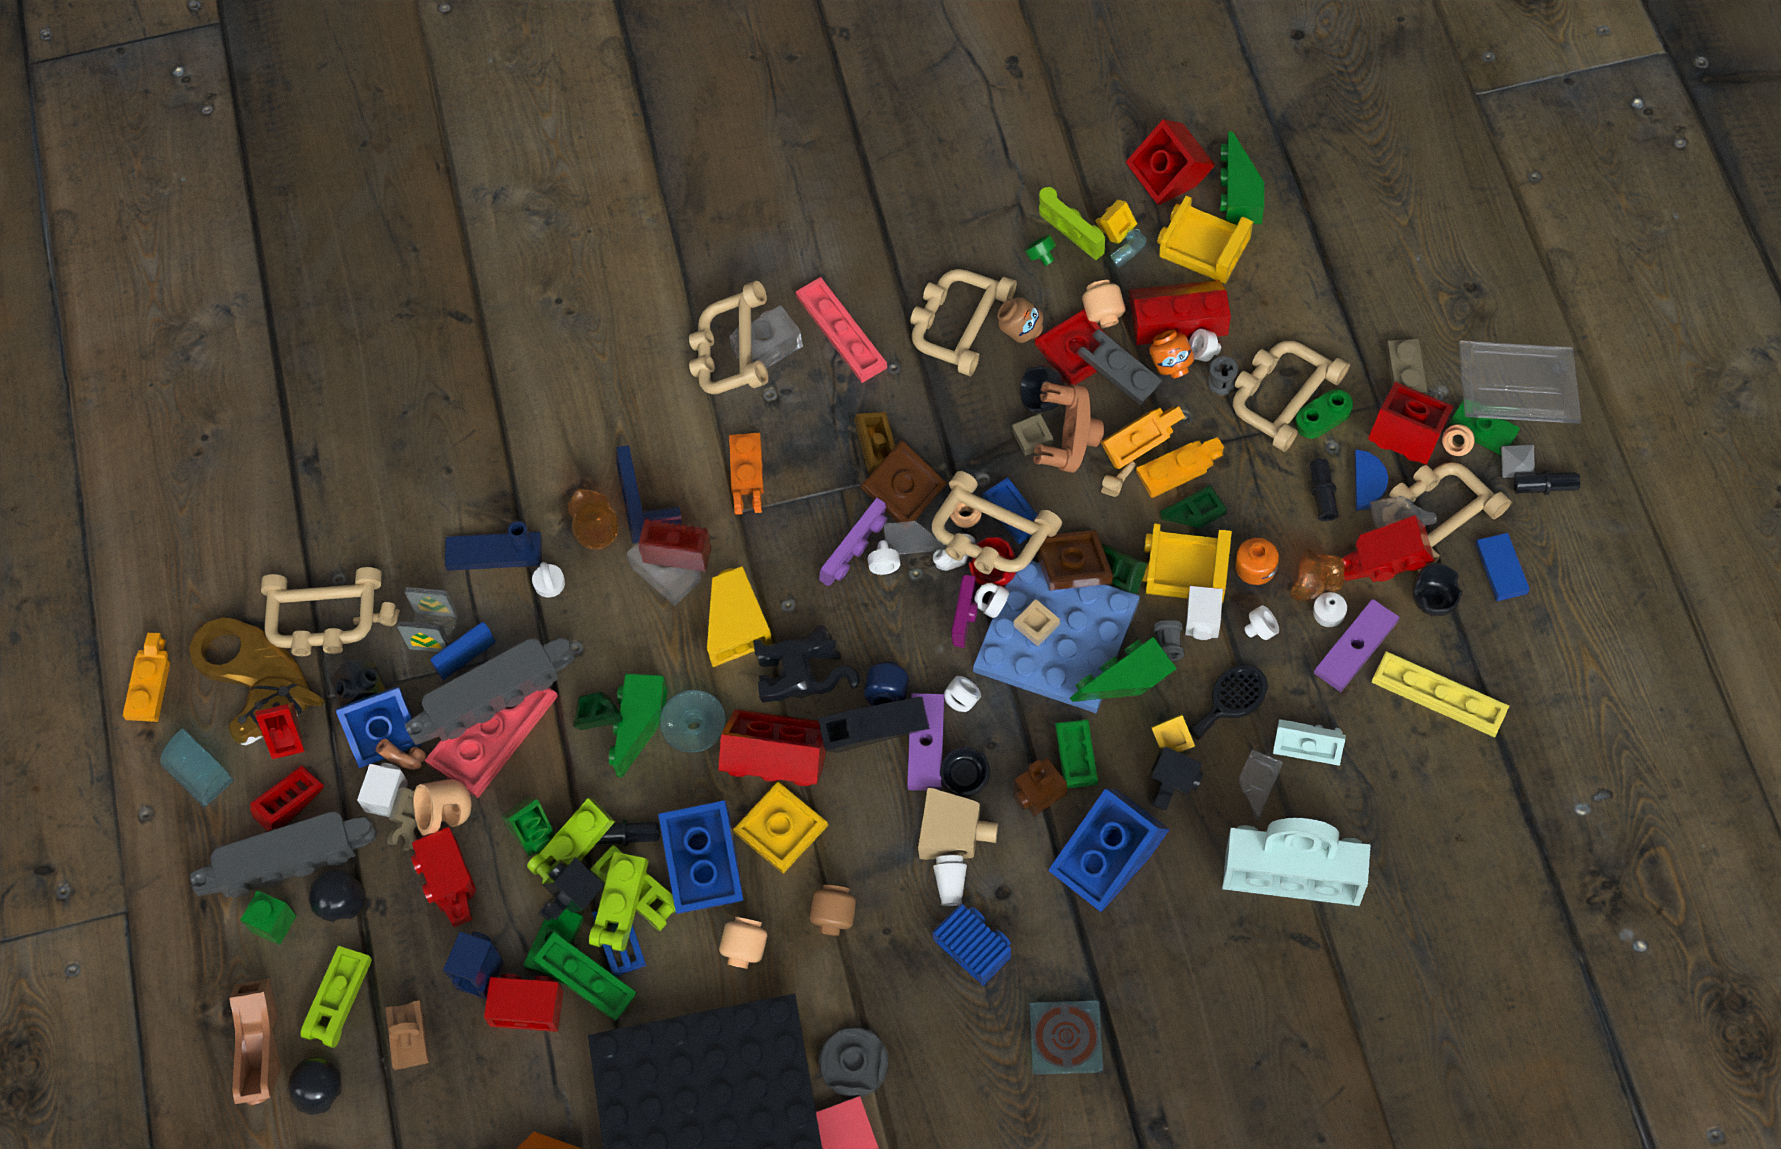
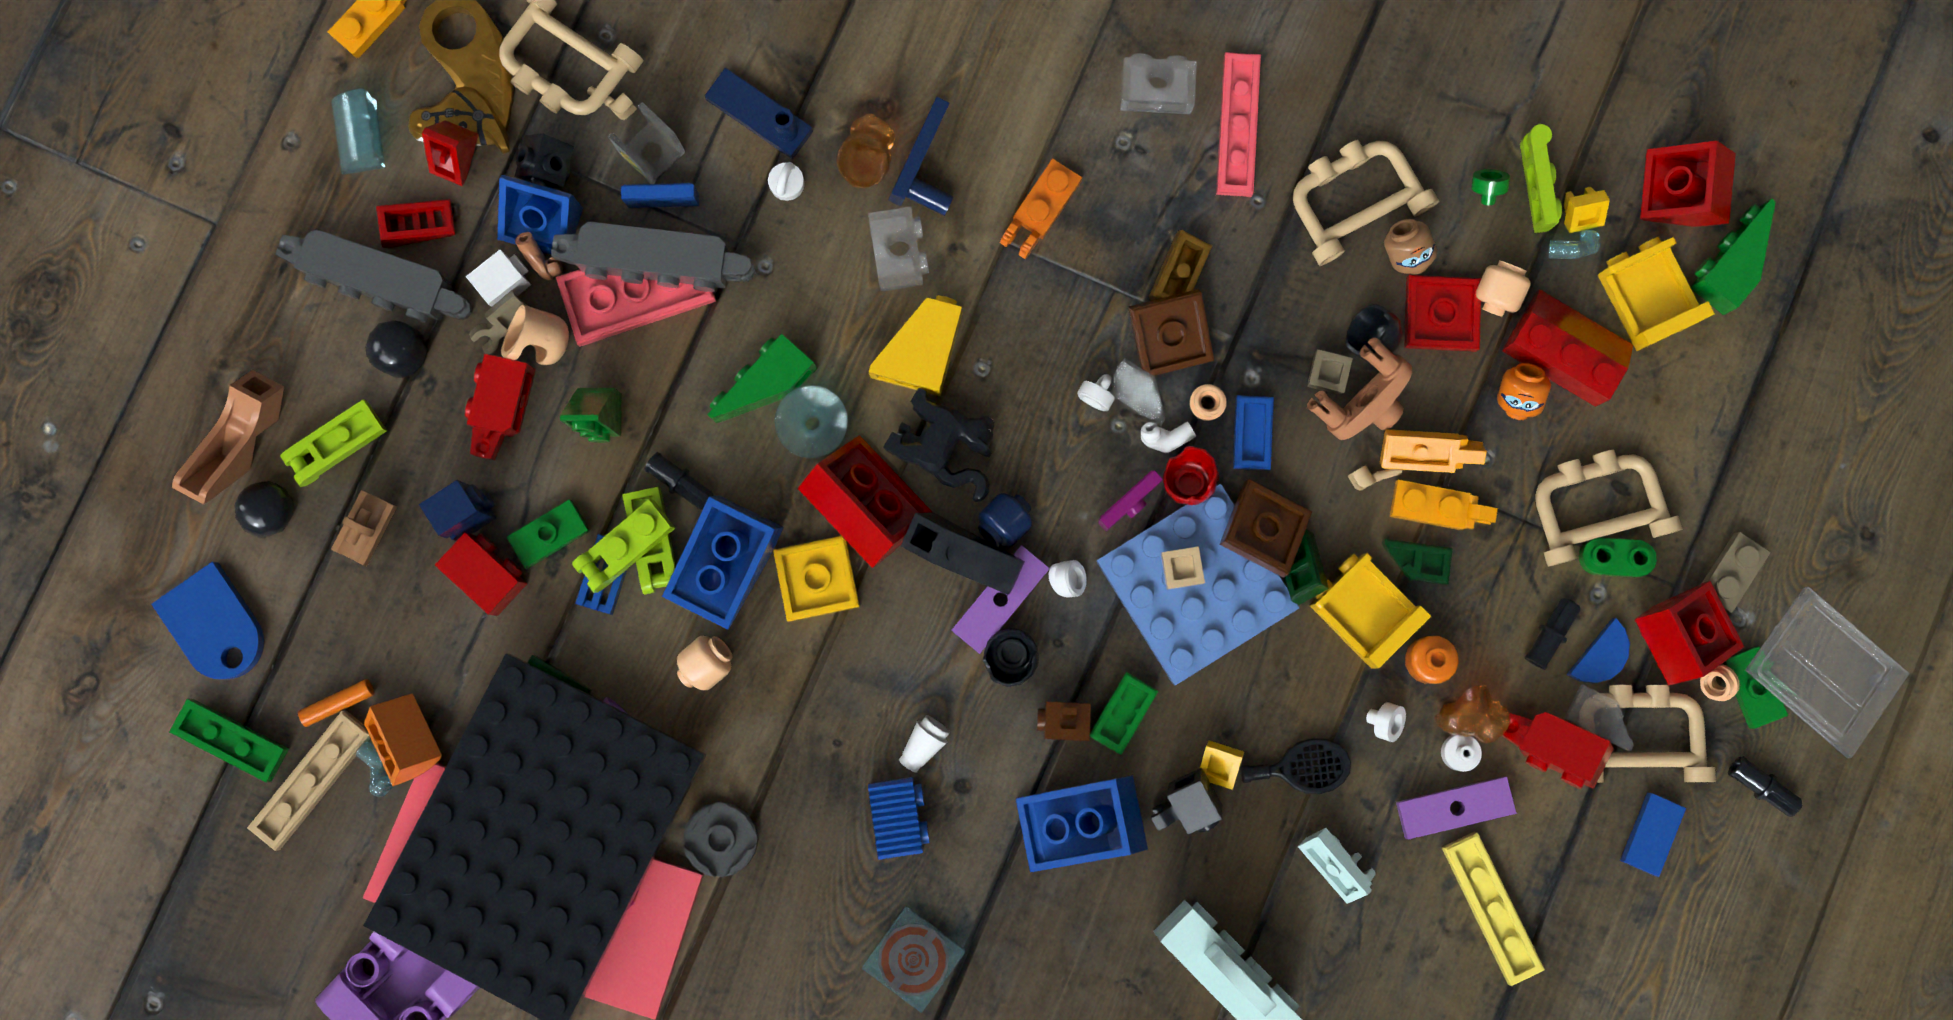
camera: 35 degrees right, 20 degrees up
(268, 917) = (321, 327): green brick -> none
(571, 888) = (589, 503): black brick -> none
(574, 838) = (624, 457): lime plate -> none
(584, 977) = (547, 591): green plate -> none
(595, 711) = (734, 347): dark green tile -> none
(675, 545) = (909, 246): clear red brick -> none
(750, 372) = (1115, 118): tan bar -> none
(832, 909) = (801, 693): medium nougat head -> none
(854, 543) = (1083, 358): medium lavender tile -> none
(952, 826) = (962, 698): tan torso -> none
(987, 558) = (1185, 472): tan bar -> none
(995, 601) = (1164, 514): white tile -> none
(1121, 368) = (1465, 368): dark grey hinge -> none
(1131, 676) = (1234, 682): green slope -> none
(1169, 638) = (1290, 671): dark grey bush -> none
(1204, 345) = (1562, 403): white tile -> none
(1204, 612) = (1343, 670): white brick -> none
(1226, 375) = (1565, 449): dark grey bush -> none
(1258, 779) = (1264, 861): clear tile -> none
(1436, 589) = (1571, 815): black hair -> none
(1517, 460) = (1757, 745): light grey slope -> none

